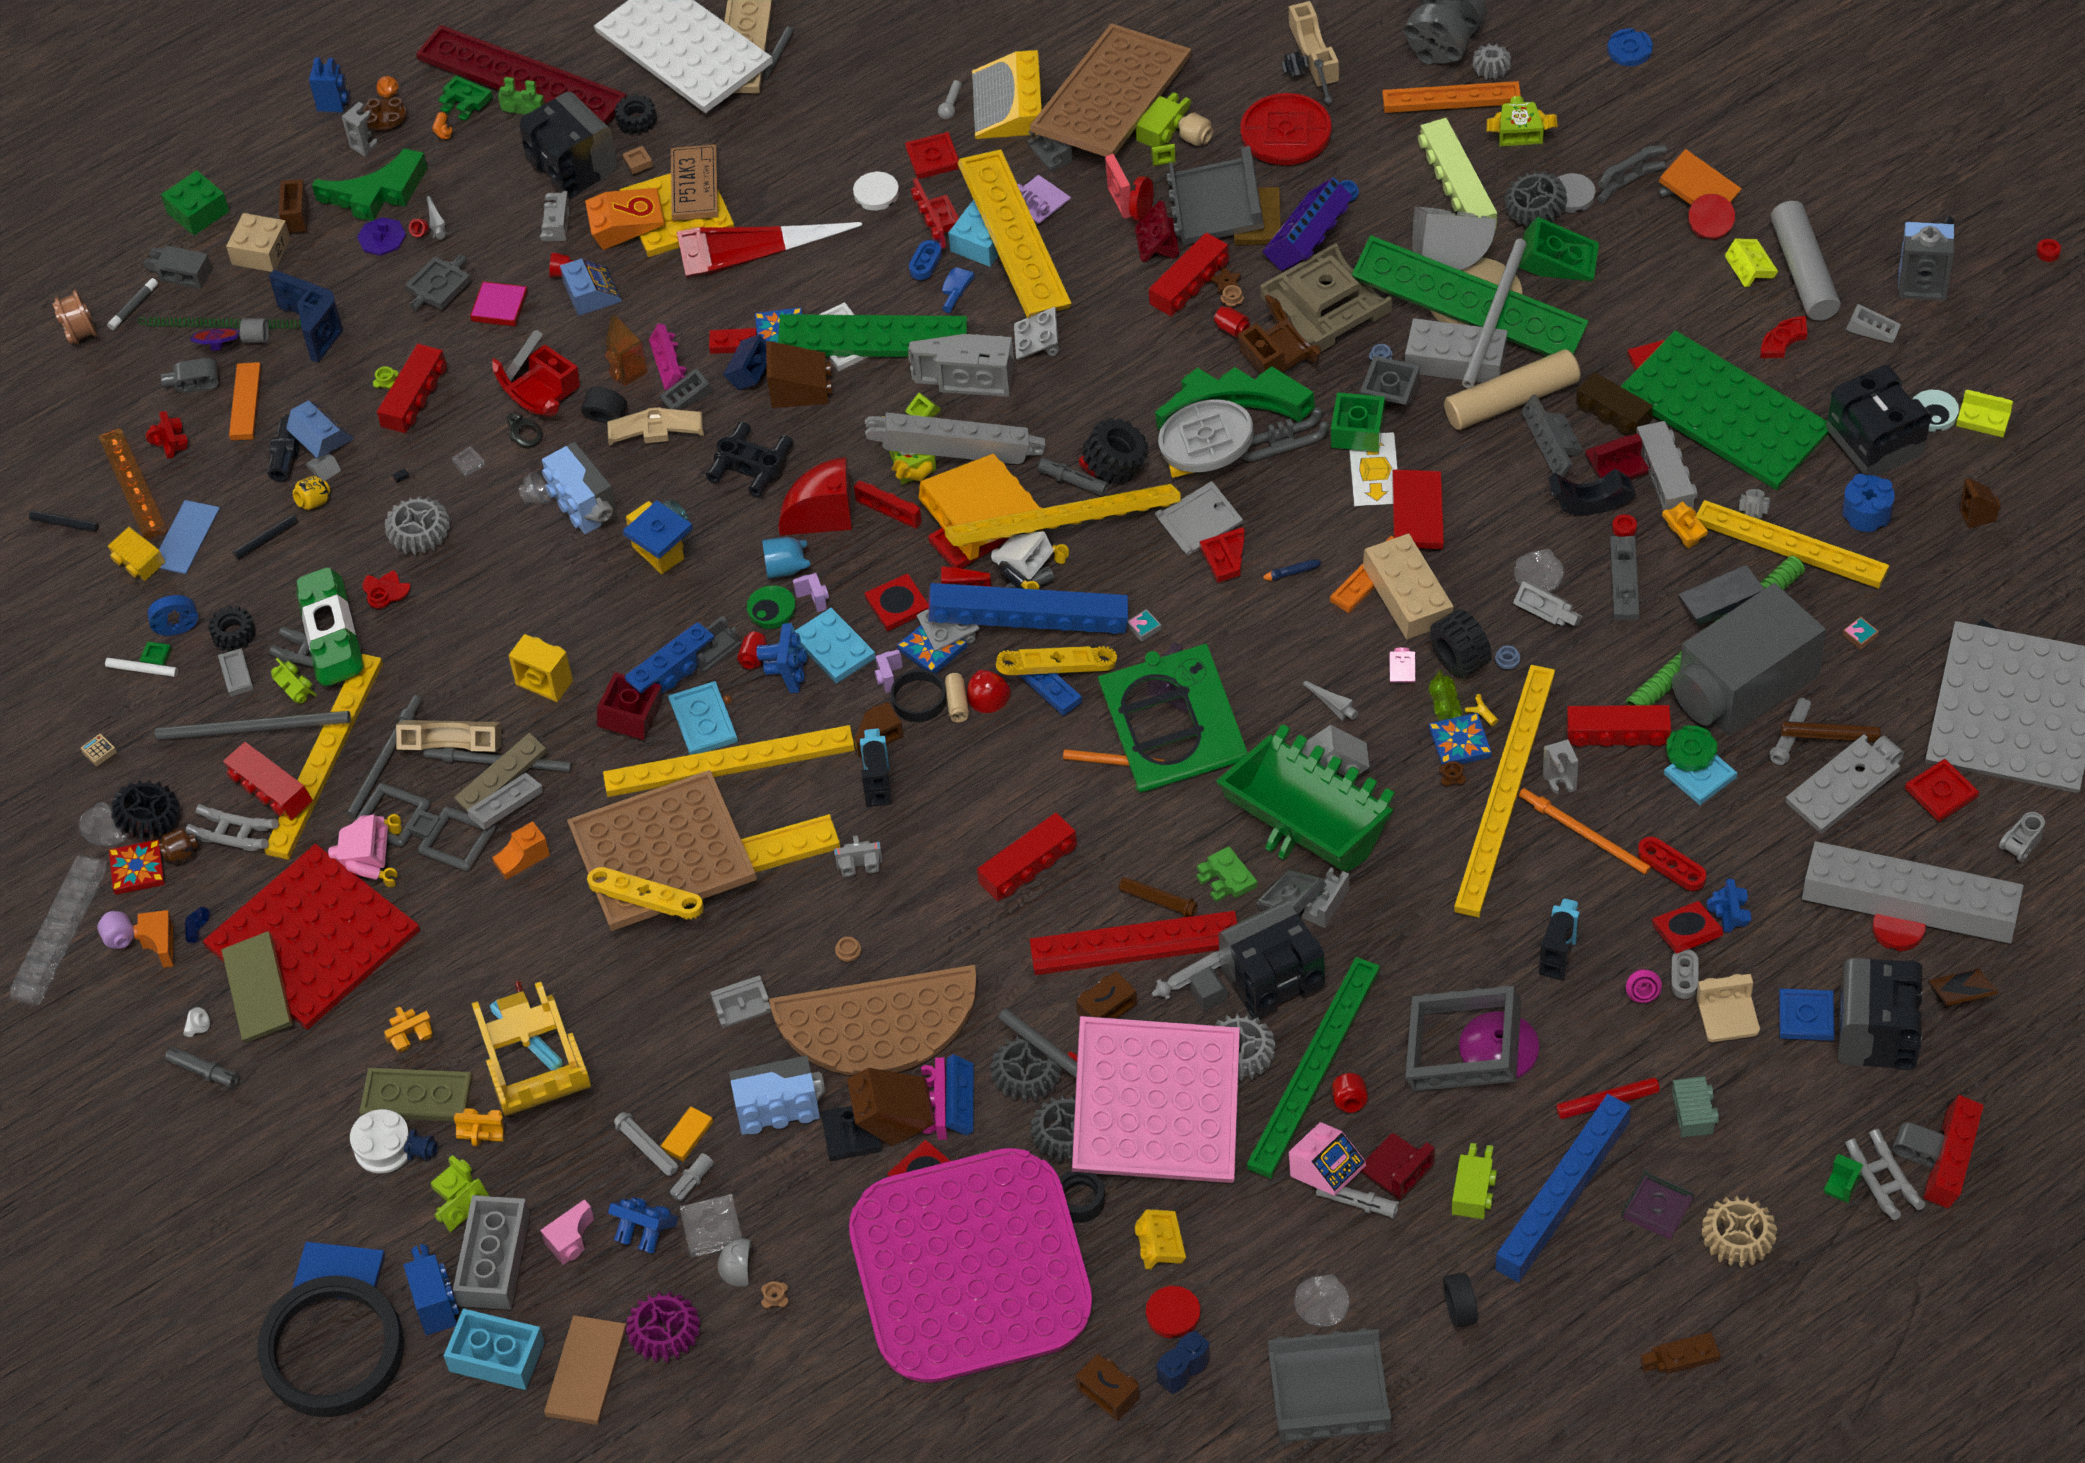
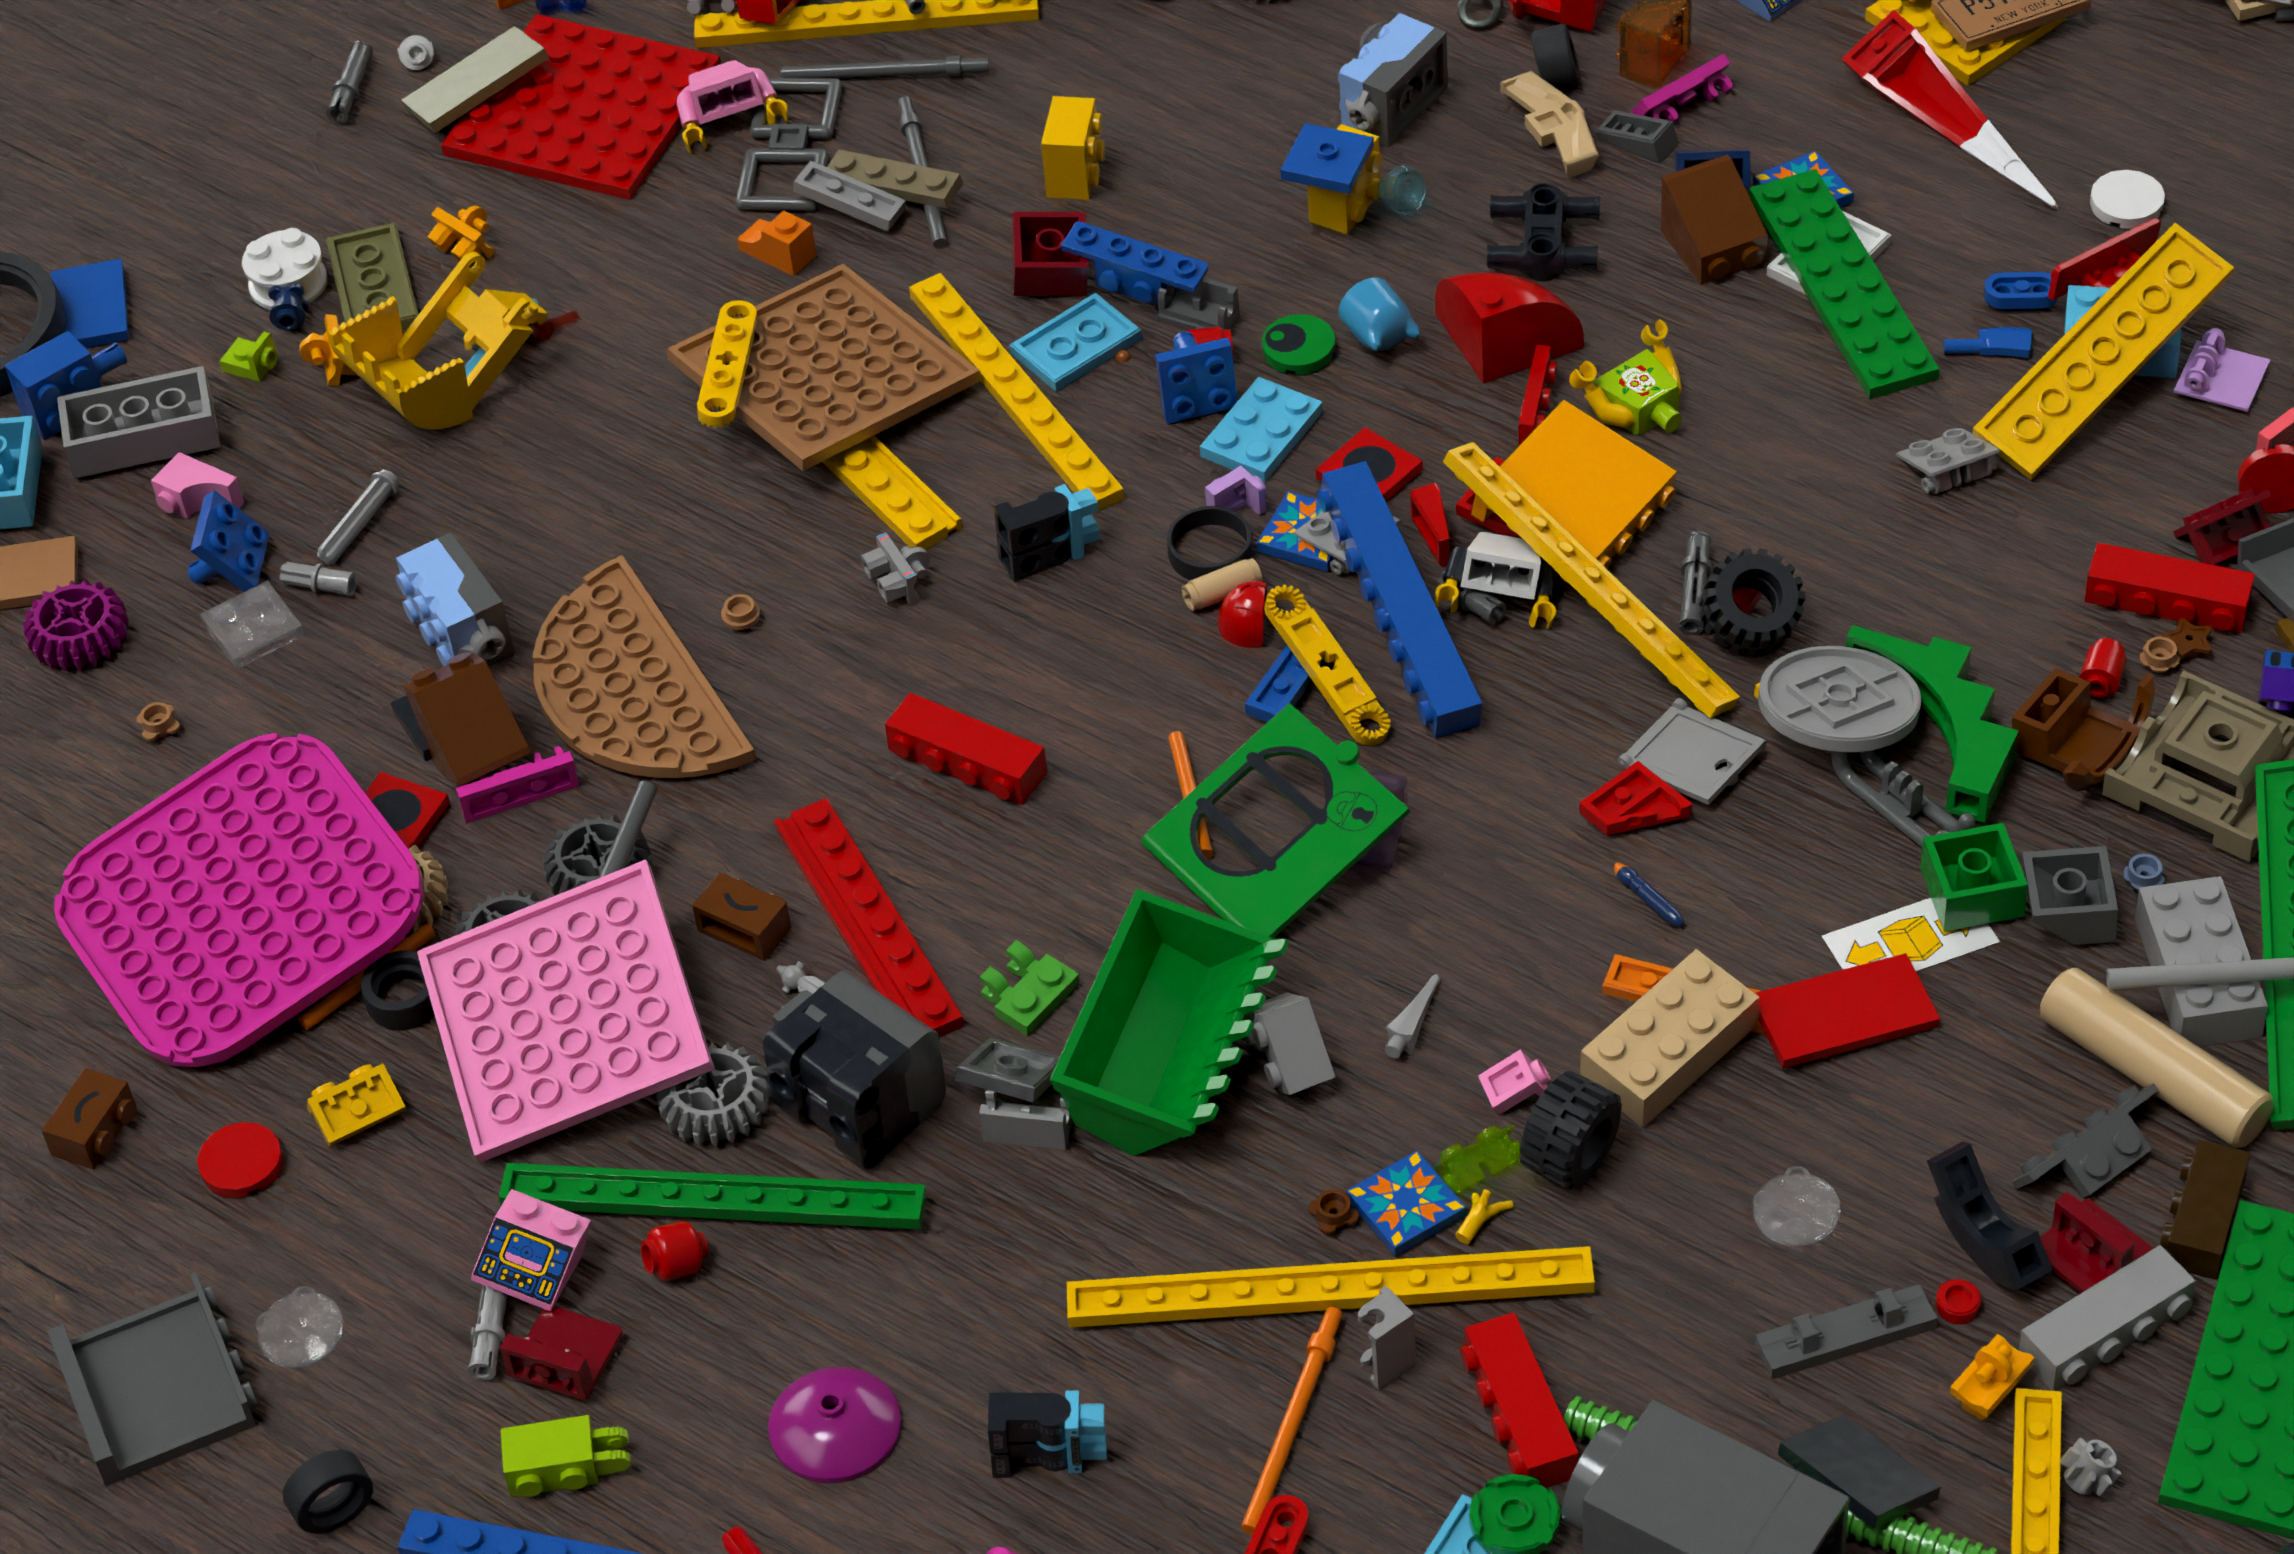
camera: 70 degrees right, 5 degrees down
(457, 1210) = (224, 380): lime hinge -> none
(458, 734) = (921, 80): tan arch -> none
(687, 1134) = (380, 550): light orange tile -> none
(728, 339) = (1756, 138): red plate -> none
(734, 1262) = (197, 651): light grey helmet -> none
(740, 1001) = (611, 529): light grey hinge -> none
(810, 585) = (1340, 374): lavender bracket -> none
(881, 718) = (1130, 518): reddish brown slope -> none
(922, 407) = (1742, 382): lime slope -> none
(932, 155) = (2239, 234): red tile -> none
(952, 437) = (1671, 414): light grey hinge -> none
(959, 1094) = (530, 805): blue plate -> none
(964, 364) = (1833, 391): light grey piece -> none
(1144, 625) = (1455, 752): tile -> none
(1184, 1361) = (147, 1190): dark blue brick -> none
(1187, 907) = (949, 958): reddish brown axle -> none
(1468, 1073) = (813, 1403): dark grey window -> none
(1510, 653) = (1599, 1208): sand blue plate -> none
(1546, 605) = (1727, 1237): light grey hinge -> none

